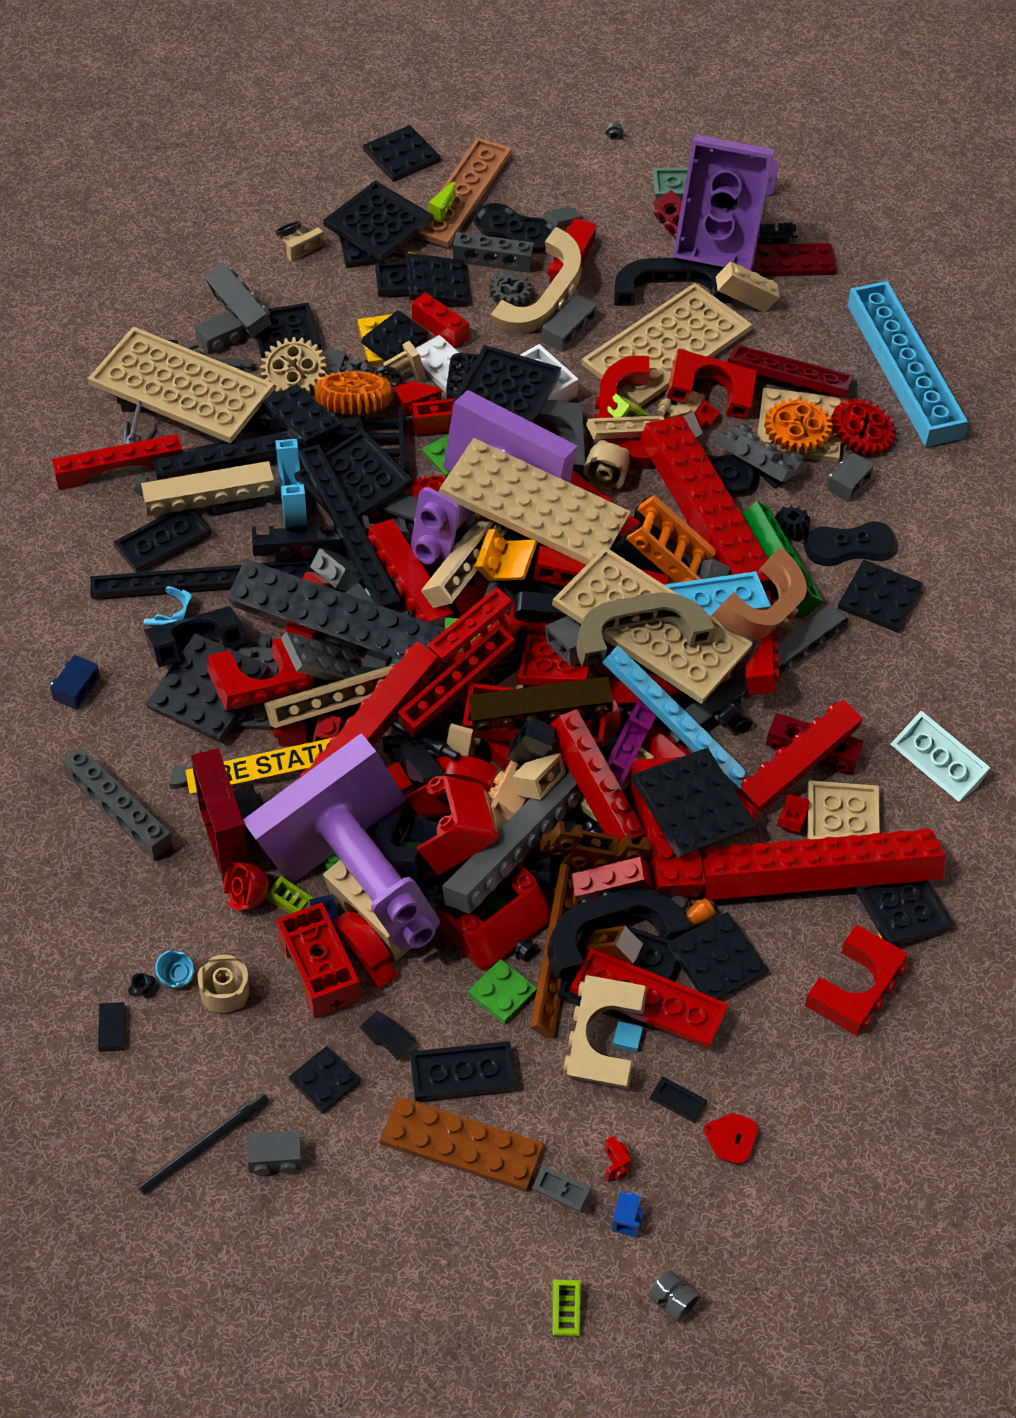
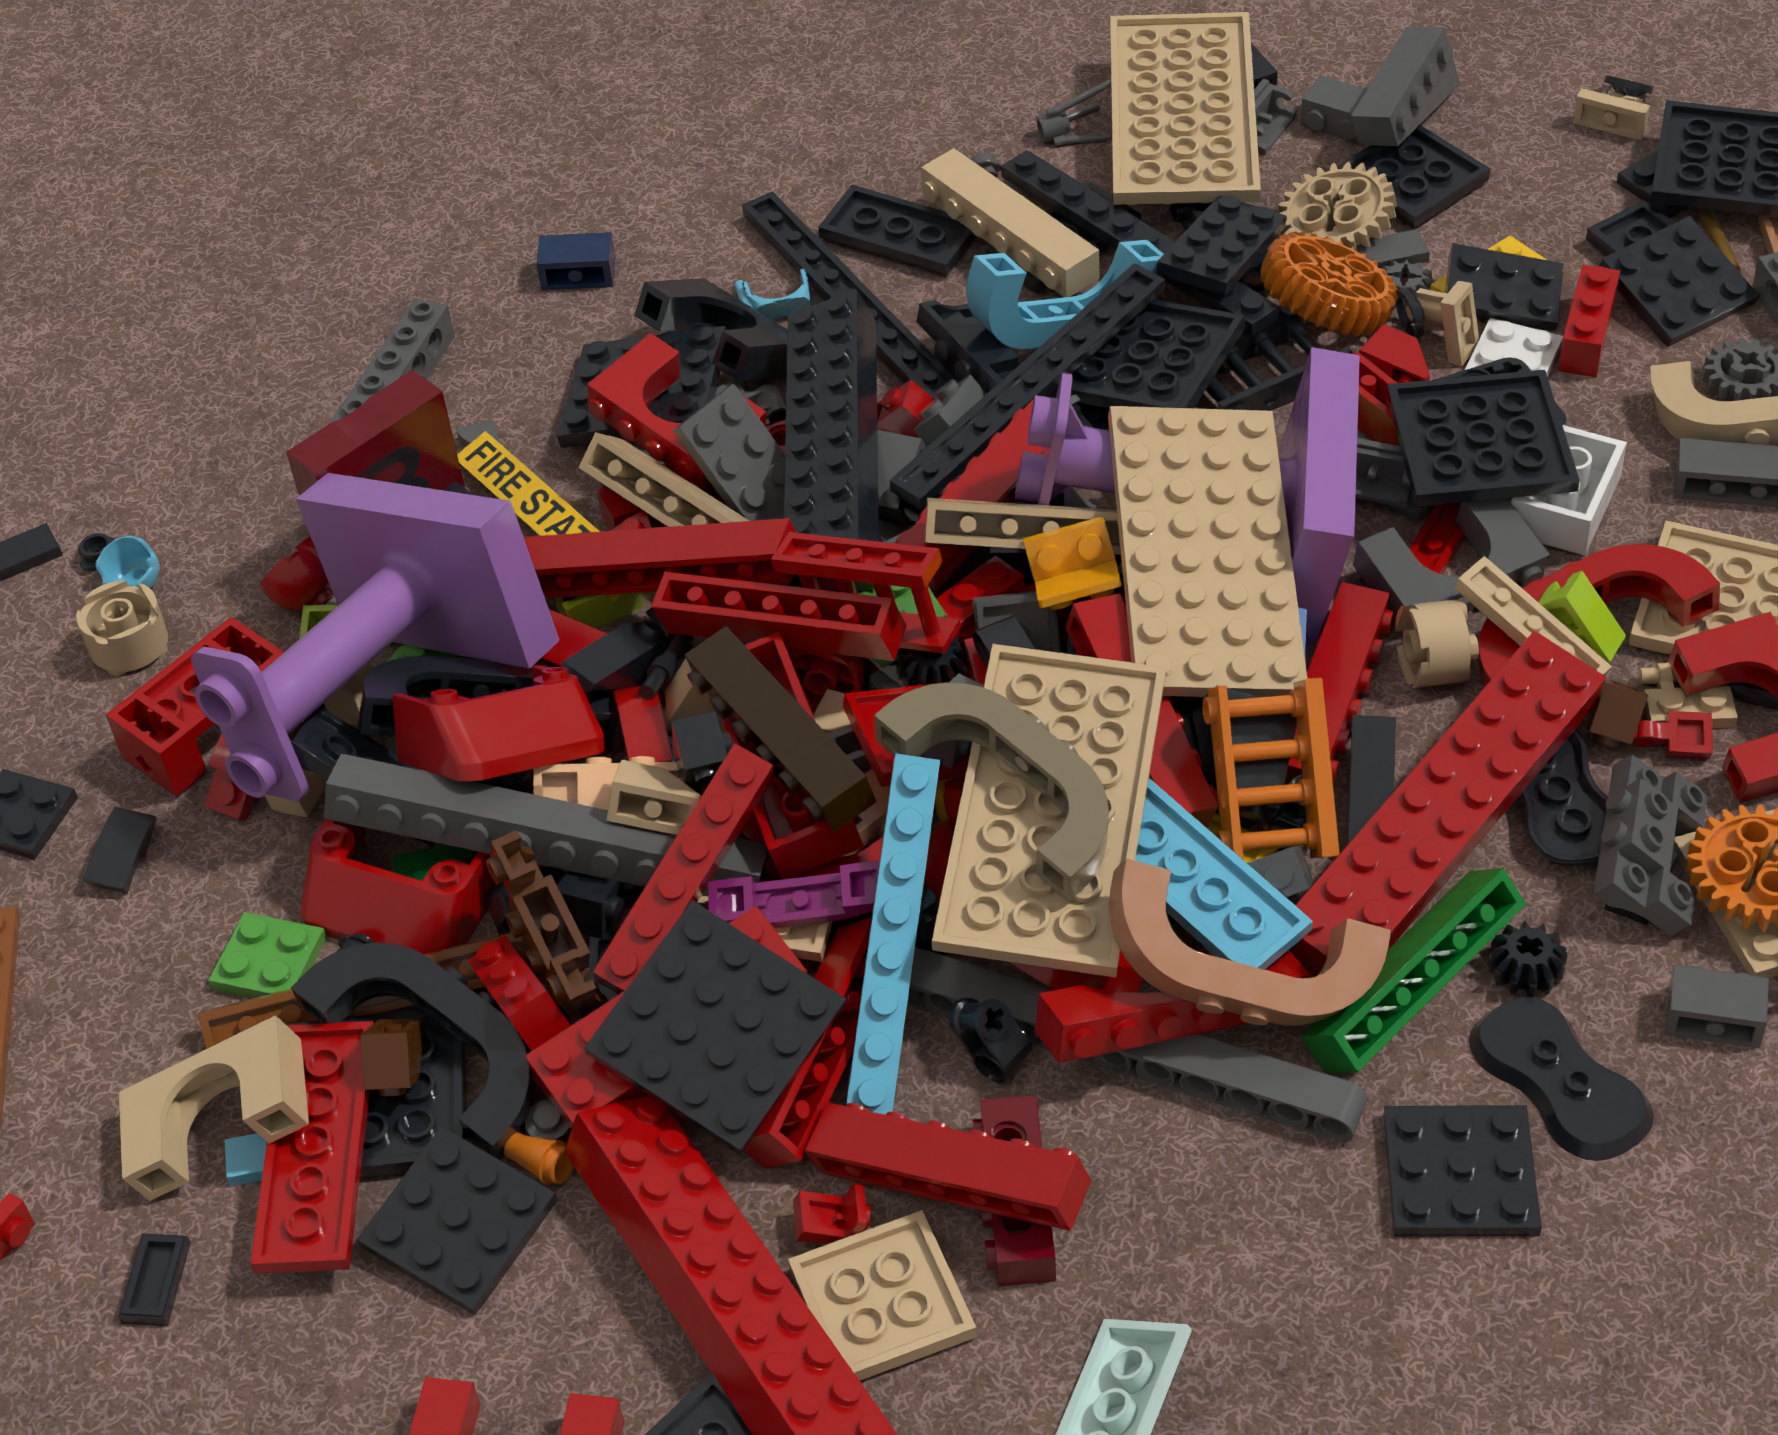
camera: 70 degrees right, 5 degrees down
(79, 468) = (958, 93): red arch -> none
(247, 364) = (1296, 152): dark grey axle -> none
(462, 1071) = (92, 967): black plate -> none
(724, 1134) = (102, 1371): red piece -> none

